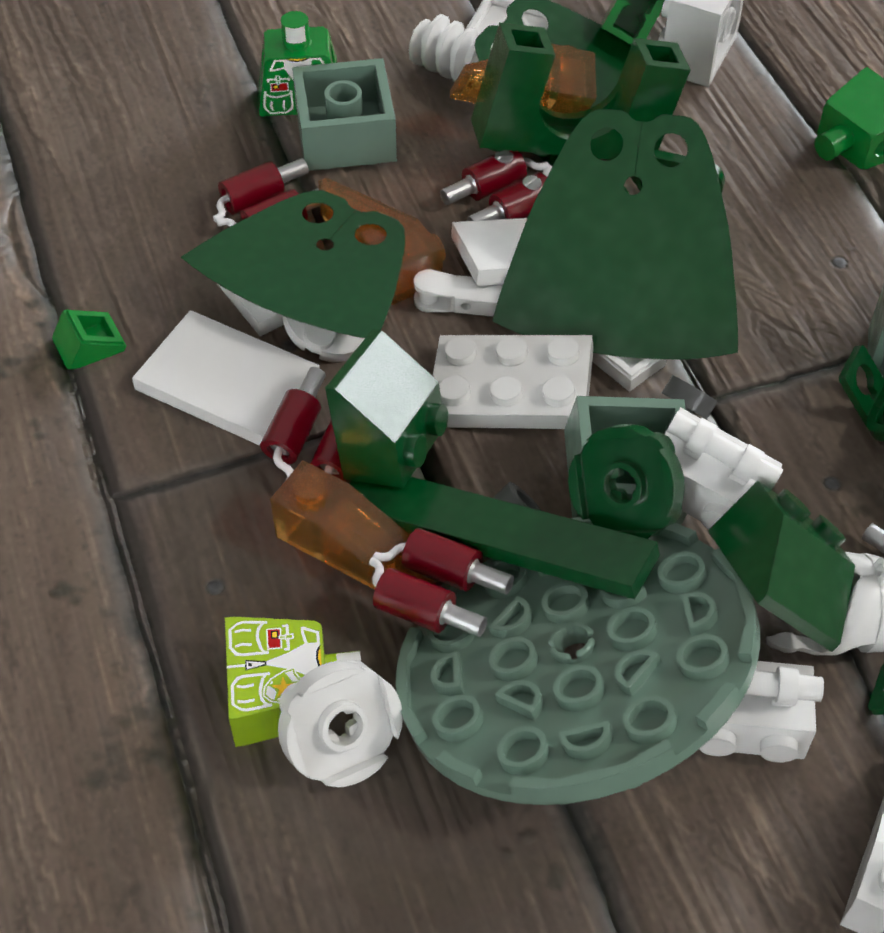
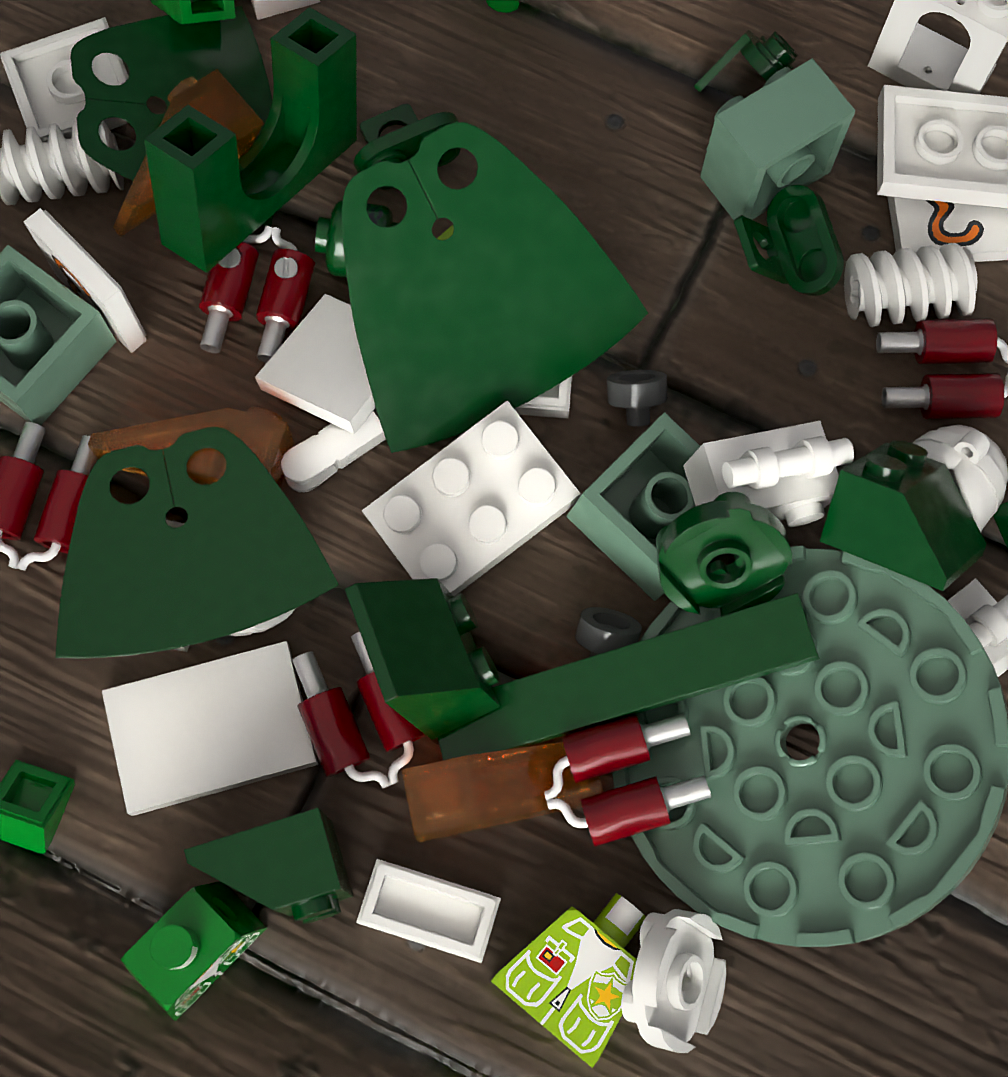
camera: 45 degrees left, 20 degrees up
(84, 460) = (192, 946): none -> green torso
(185, 455) = (281, 864): none -> dark green slope
(238, 571) = (429, 910): none -> white tile
(408, 108) = (86, 278): none -> white tile

